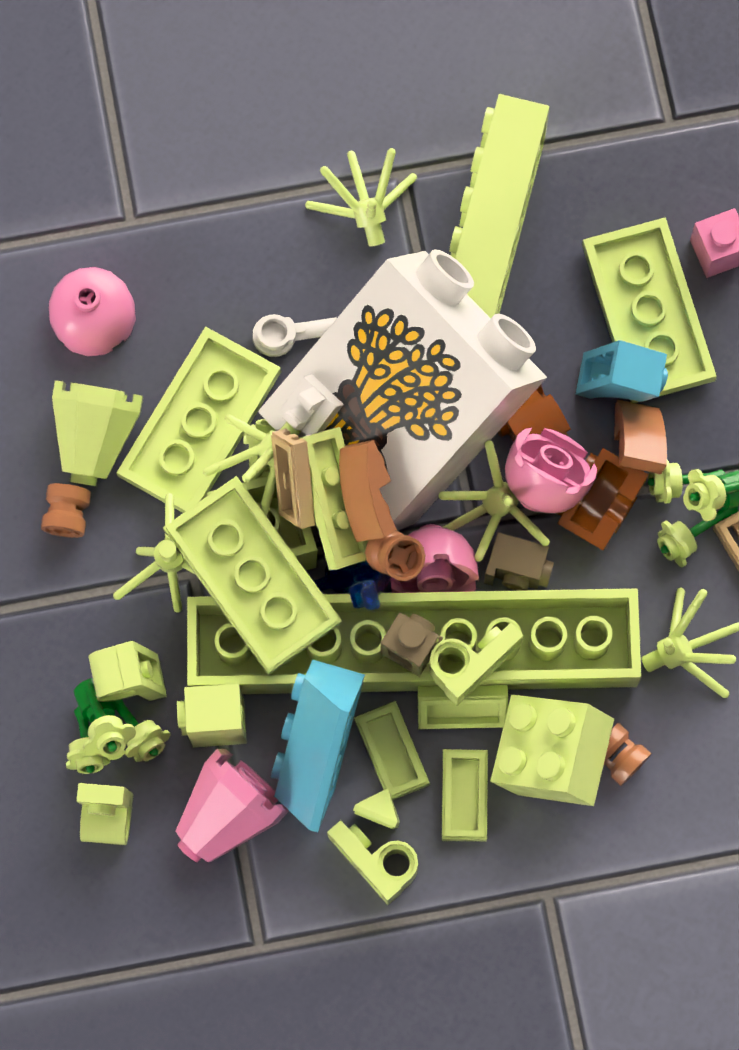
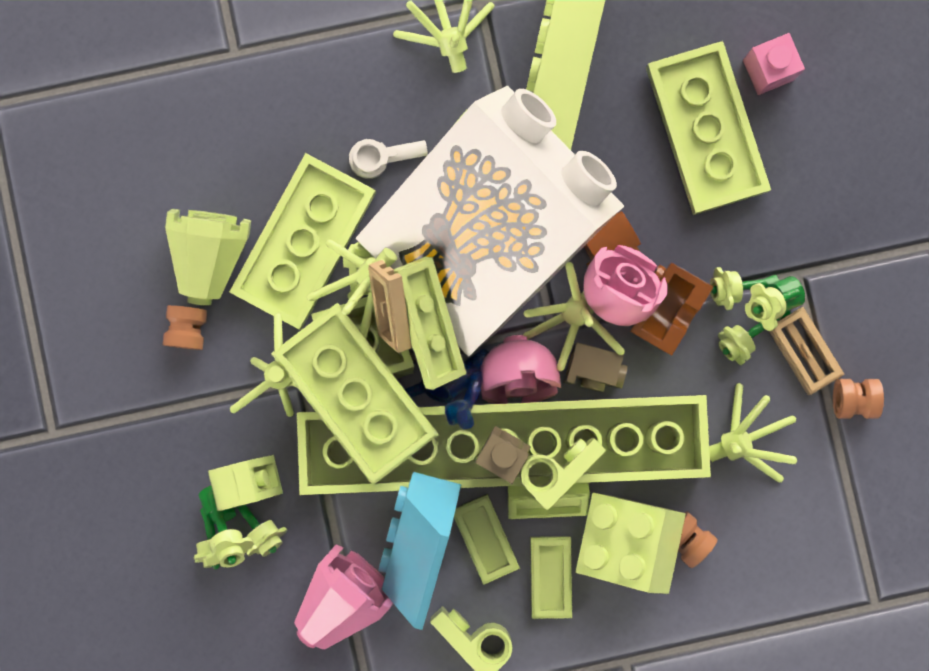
camera: 10 degrees left, 10 degrees up
(91, 311) = (211, 151): bright pink cylinder -> none
(104, 813) = (230, 605): yellowish green plate -> none
(213, 715) = (323, 519): yellowish green brick -> none
(310, 406) = (403, 238): white tile -> none
(361, 478) = (453, 308): nougat slope -> none
(379, 809) = (475, 597): yellowish green slope -> none
(405, 556) = (486, 374): nougat wheel -> none
(622, 372) = (687, 190): medium azure arch -> none
(640, 437) = (705, 249): nougat slope -> none

